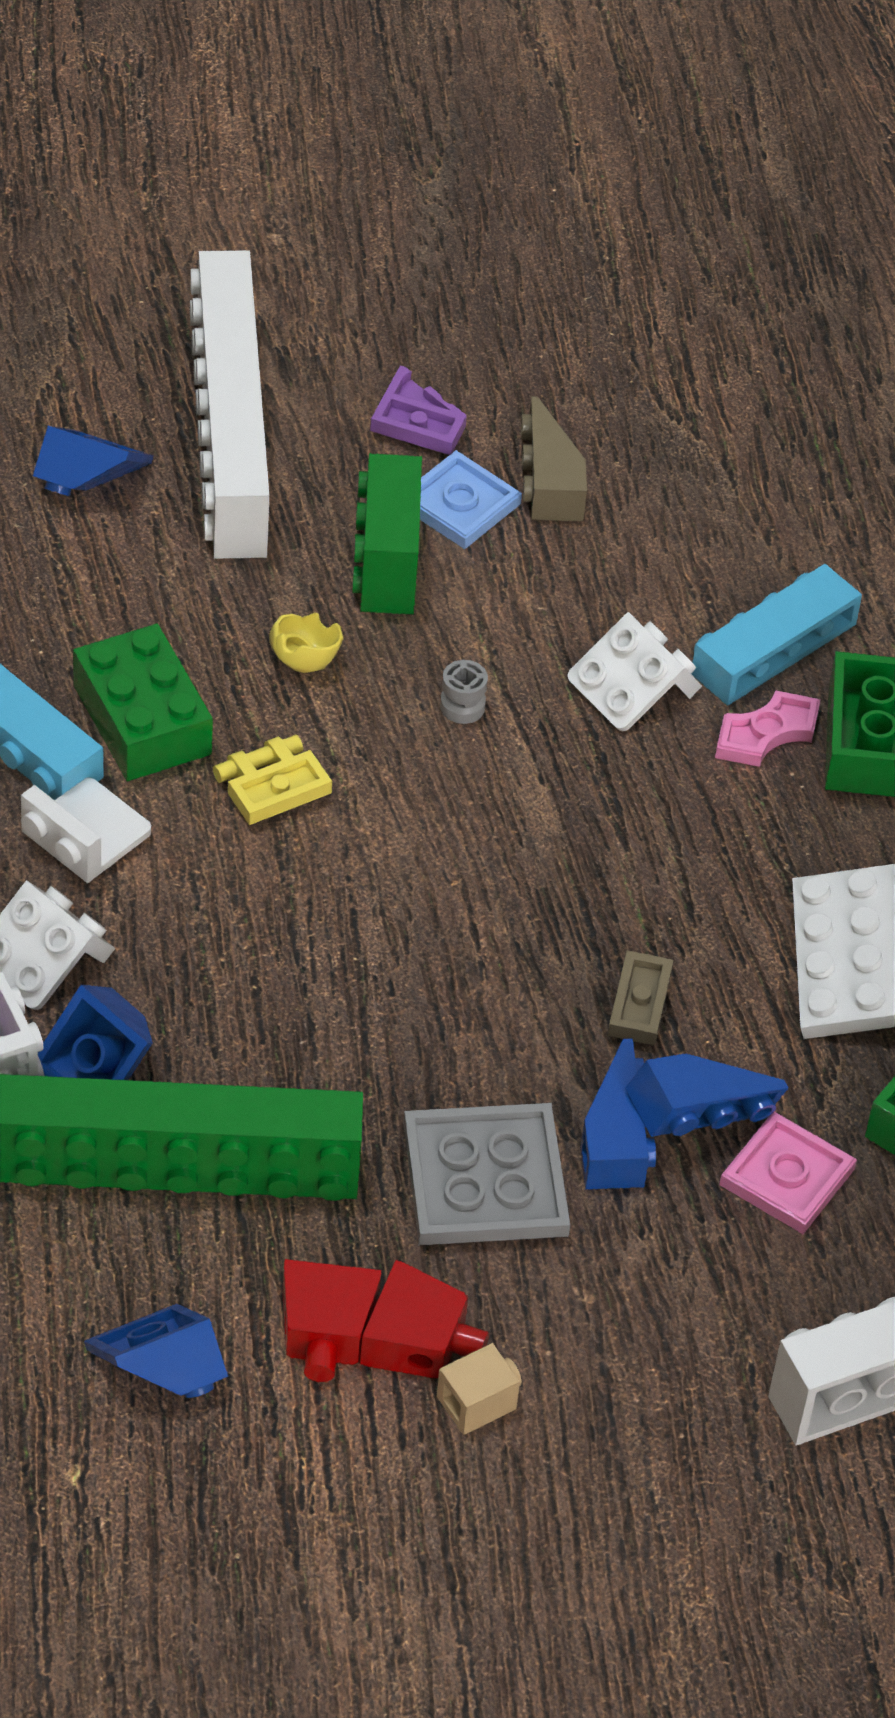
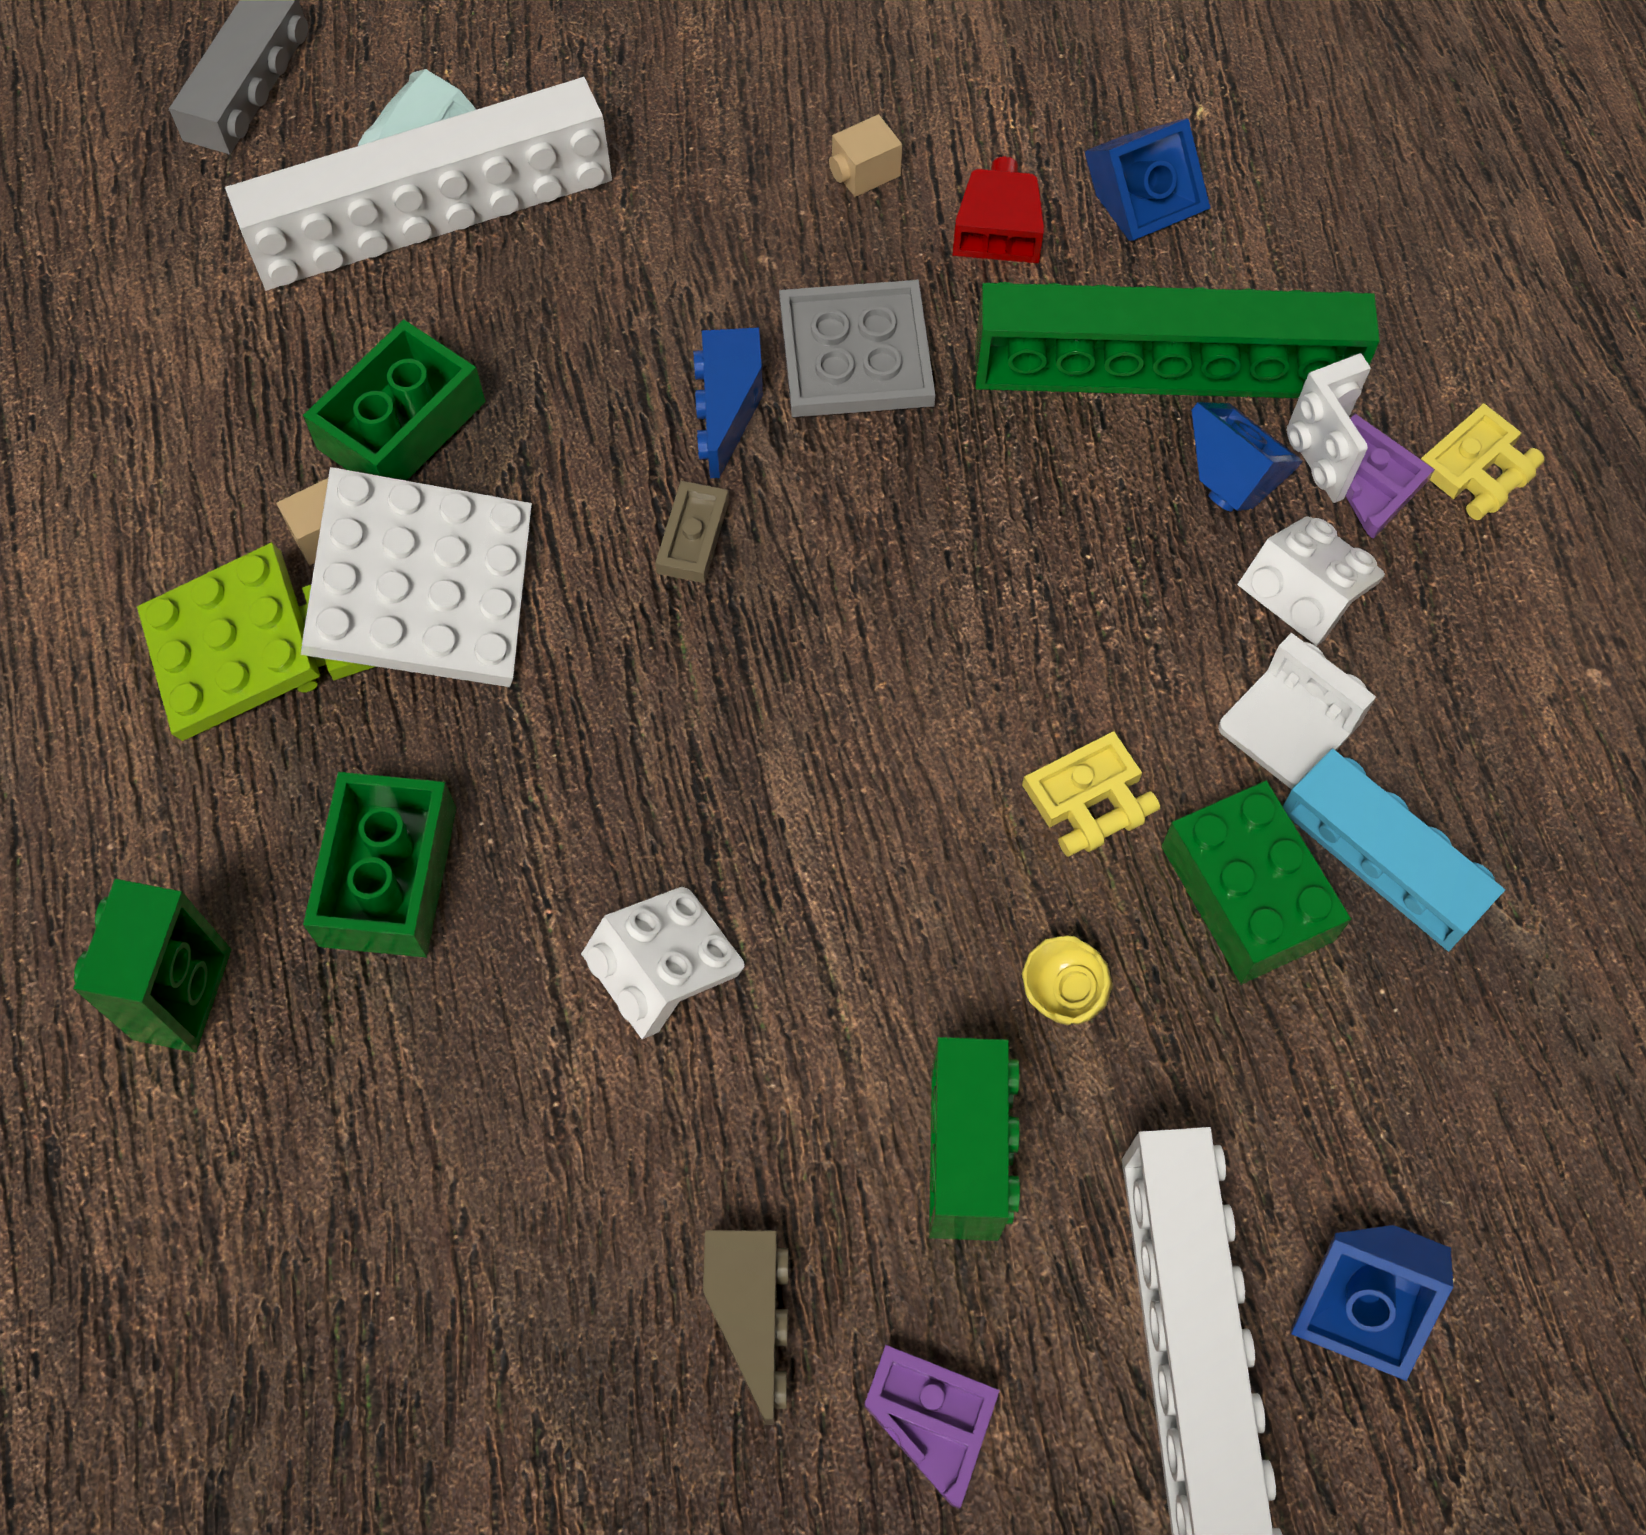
camera: 175 degrees left, 15 degrees up
(418, 1325) = (916, 206): red torso -> none
(463, 691) = (870, 928): light grey wheel -> none
(464, 499) = (872, 1264): light blue tile -> none
(695, 1092) = (643, 390): blue slope -> none
(753, 734) = (487, 906): bright pink tile -> none
(775, 634) = (479, 1022): medium azure brick -> none
(788, 1172) = (565, 367): bright pink tile -> none

